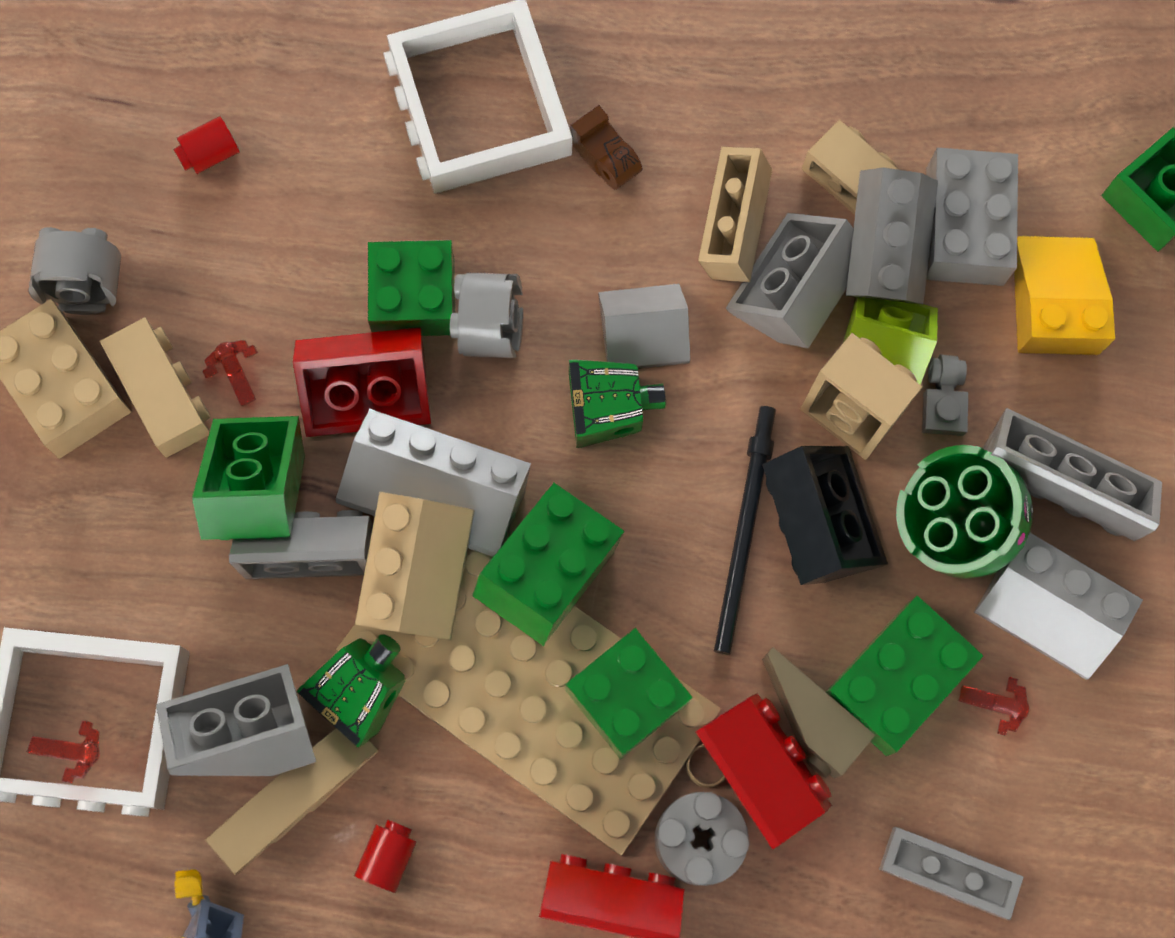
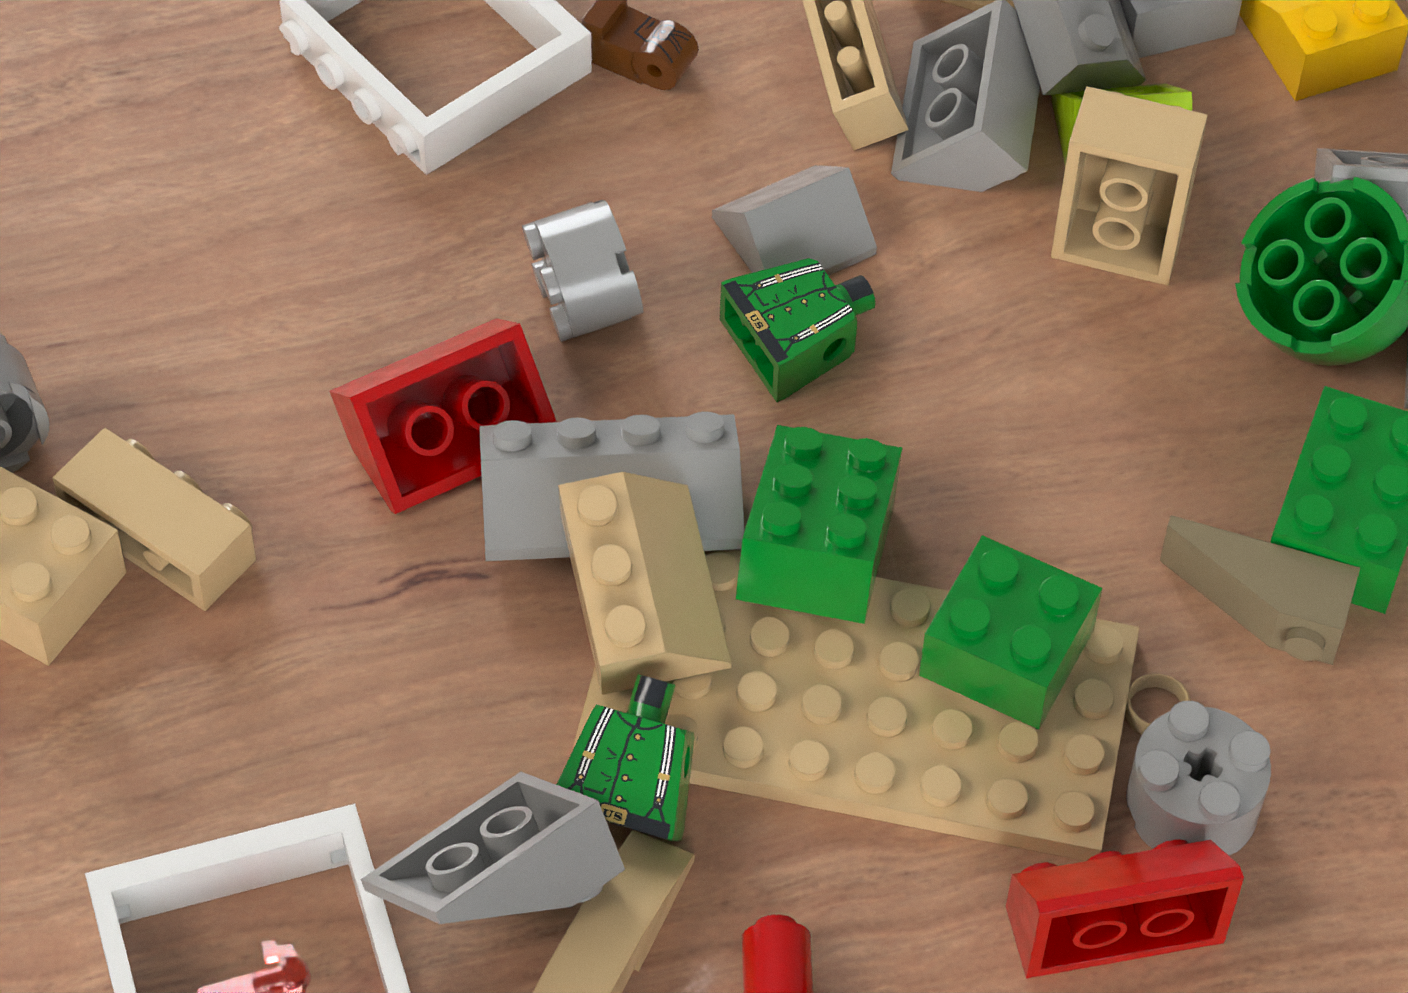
camera: 20 degrees left, 20 degrees down
(206, 146) = (85, 210): red brick -> none
(226, 354) = (234, 450): clear red piece -> none
(249, 478) = (360, 556): green brick -> none
(314, 549) = (471, 633): light grey slope -> none
(411, 286) = (458, 273): green brick -> none
(759, 450) = (1026, 318): black bar -> none
(766, 769) = (1239, 658): red slope -> none
(824, 513) = (1147, 354): black slope -> none
(946, 409) = (1232, 186): light grey plate -> none

